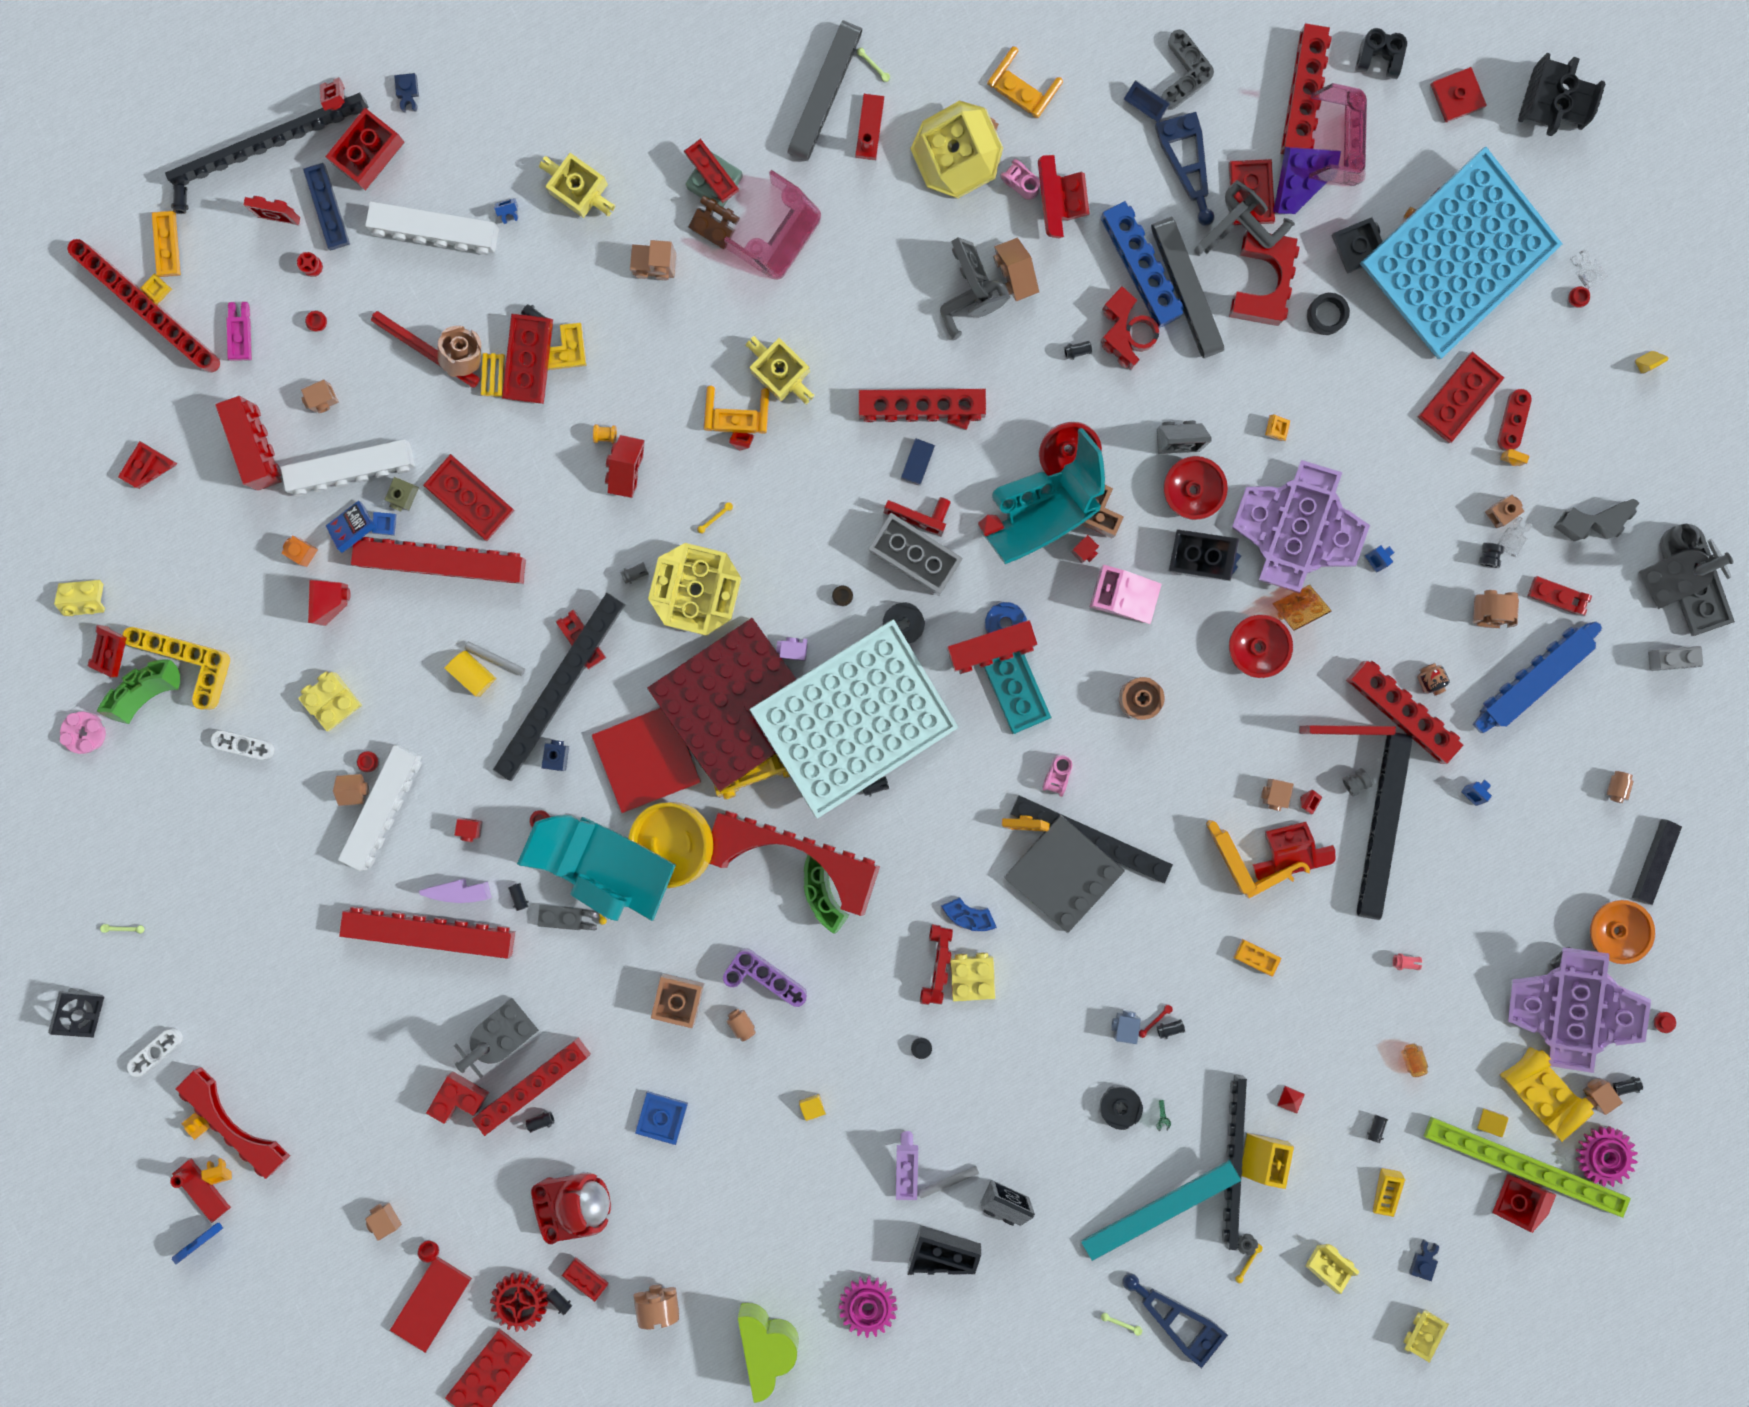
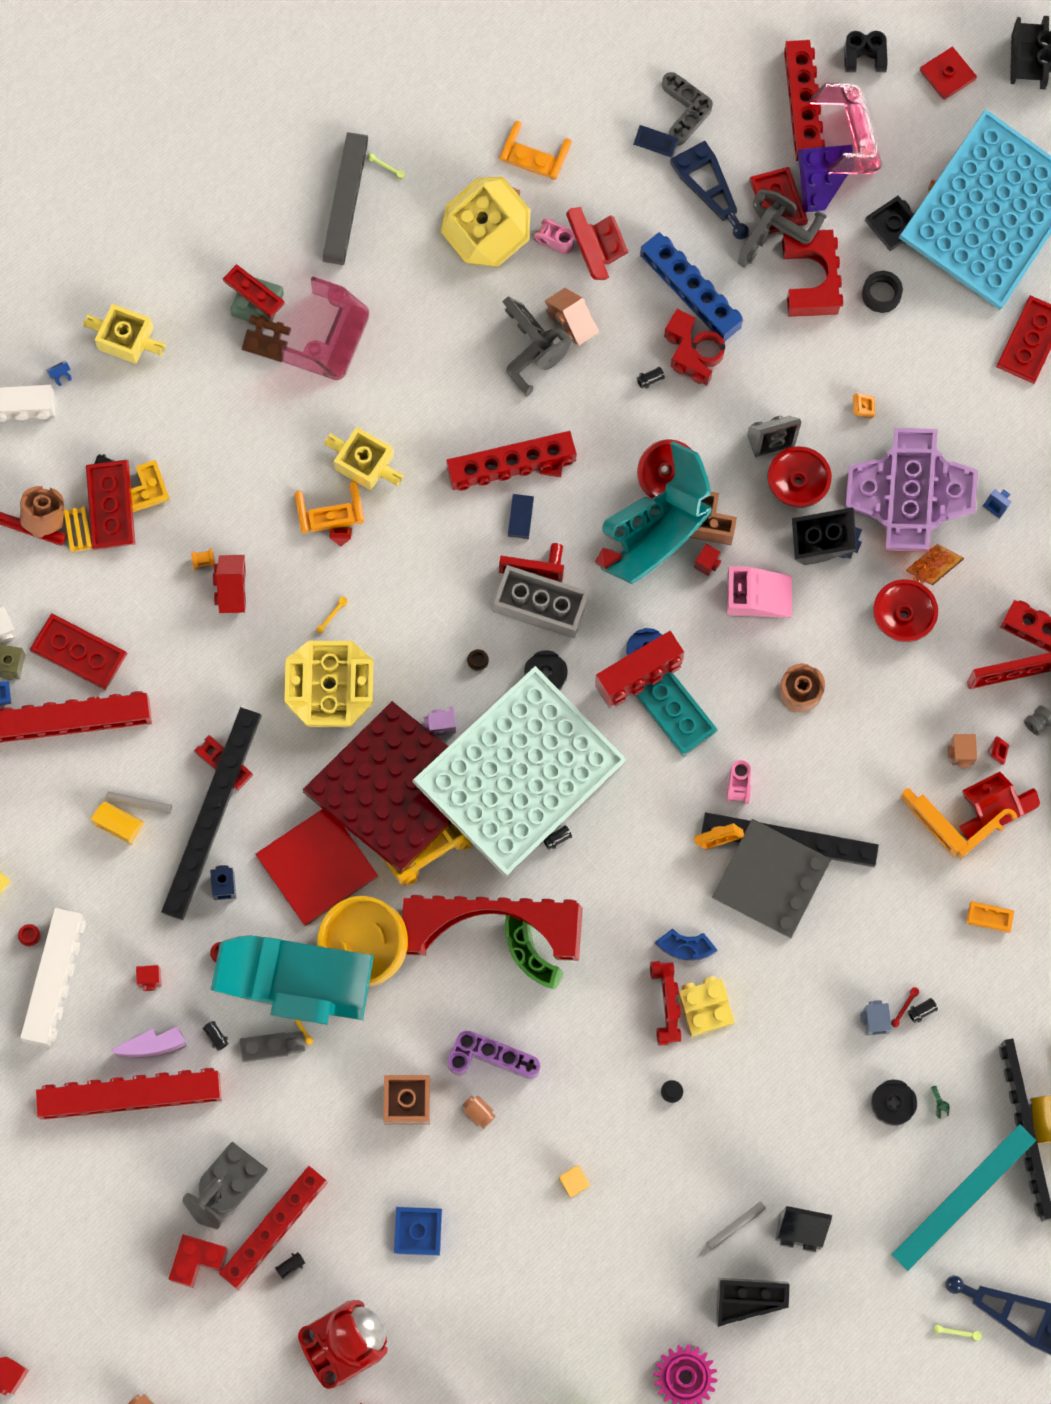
camera: 15 degrees left, 15 degrees down
(350, 789) = (18, 965): nougat brick -> none
(634, 573) = (261, 686): dark grey pin -> none
(653, 260) = (215, 386): nougat brick -> none
(869, 127) = (396, 221): red piece -> none
(906, 1168) = (689, 1219): lavender piece -> none
(1187, 287) = (741, 297): dark grey beam -> none

